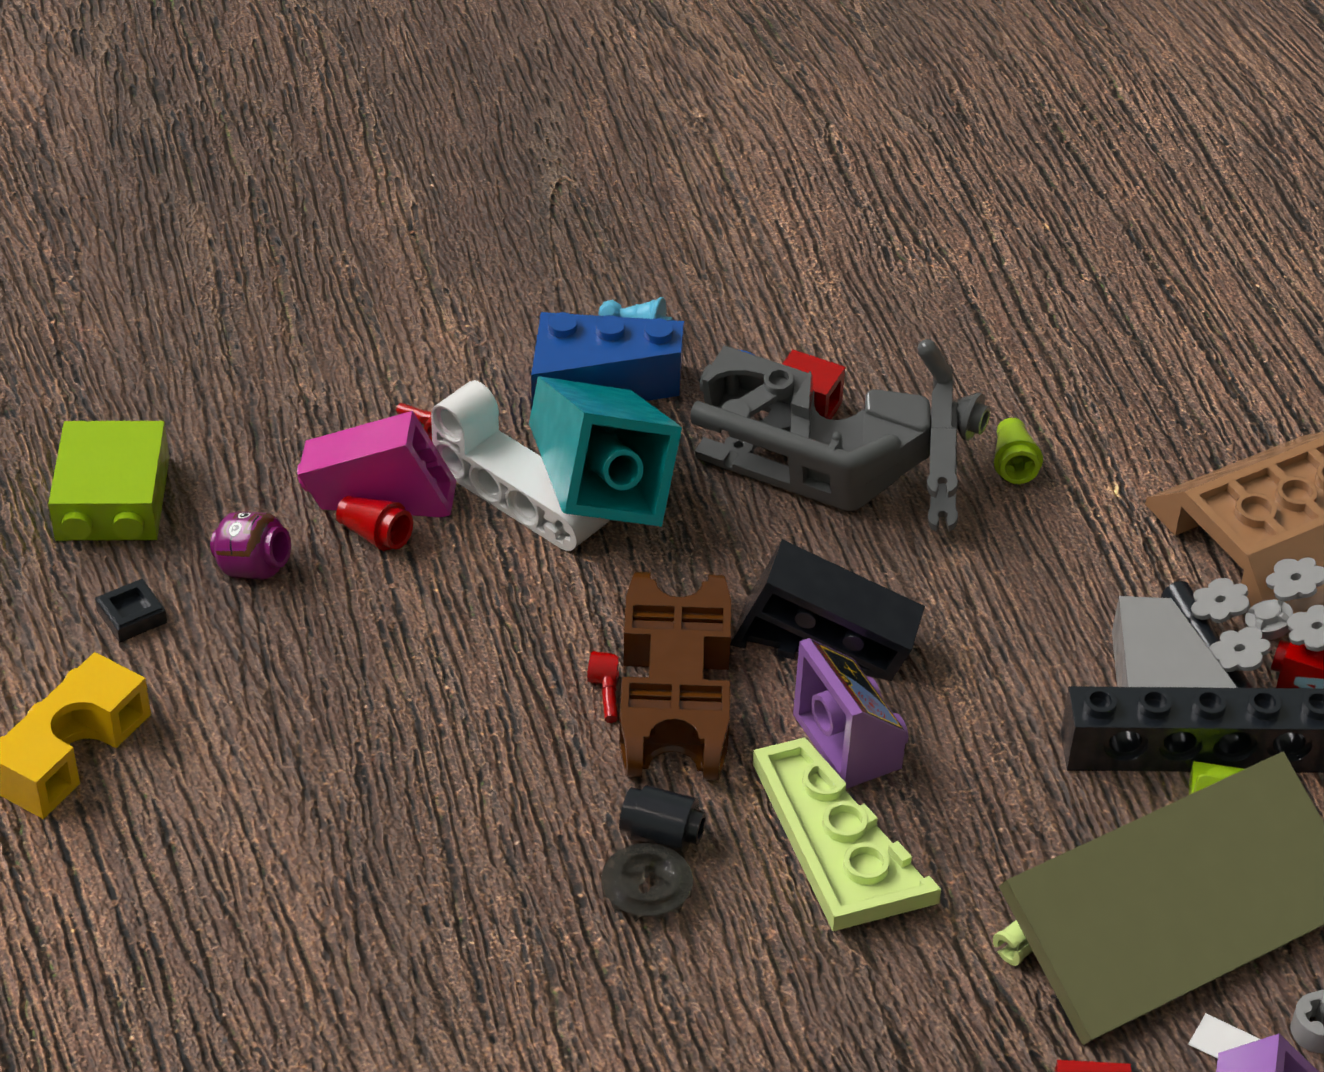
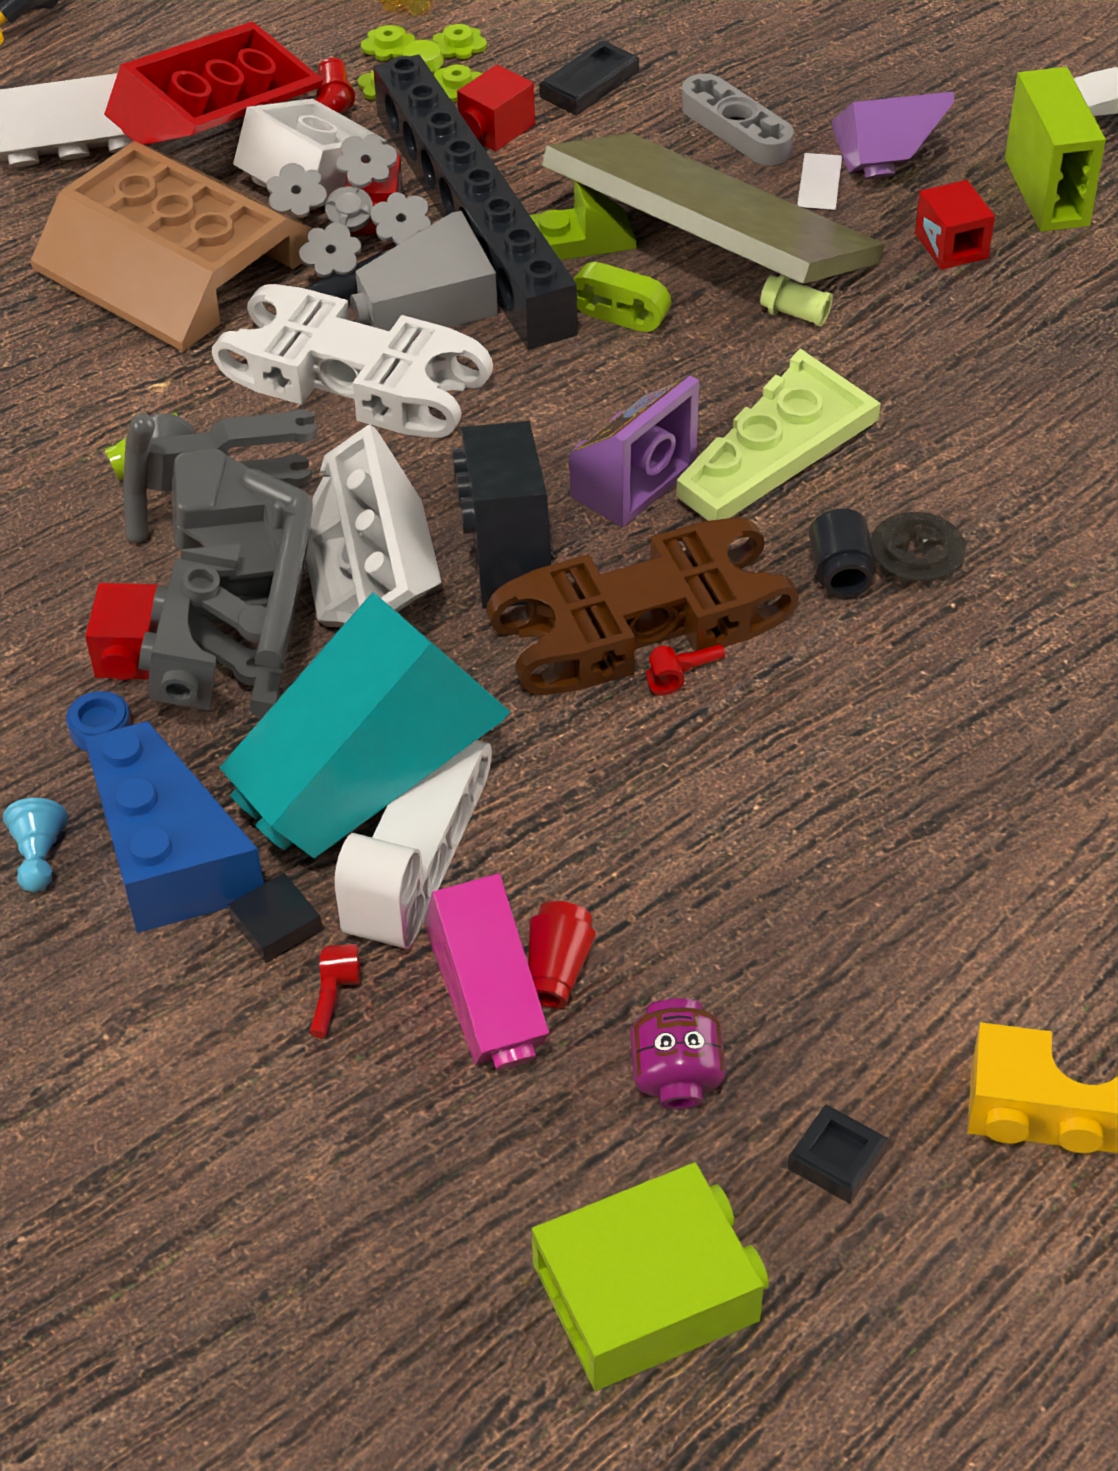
camera: 110 degrees left, 5 degrees up
(512, 407) = (275, 917): none -> black tile
(835, 530) = (367, 532): none -> white wedge
(1059, 609) = (365, 363): none -> white piece
(1086, 794) = (621, 297): none -> lime beam

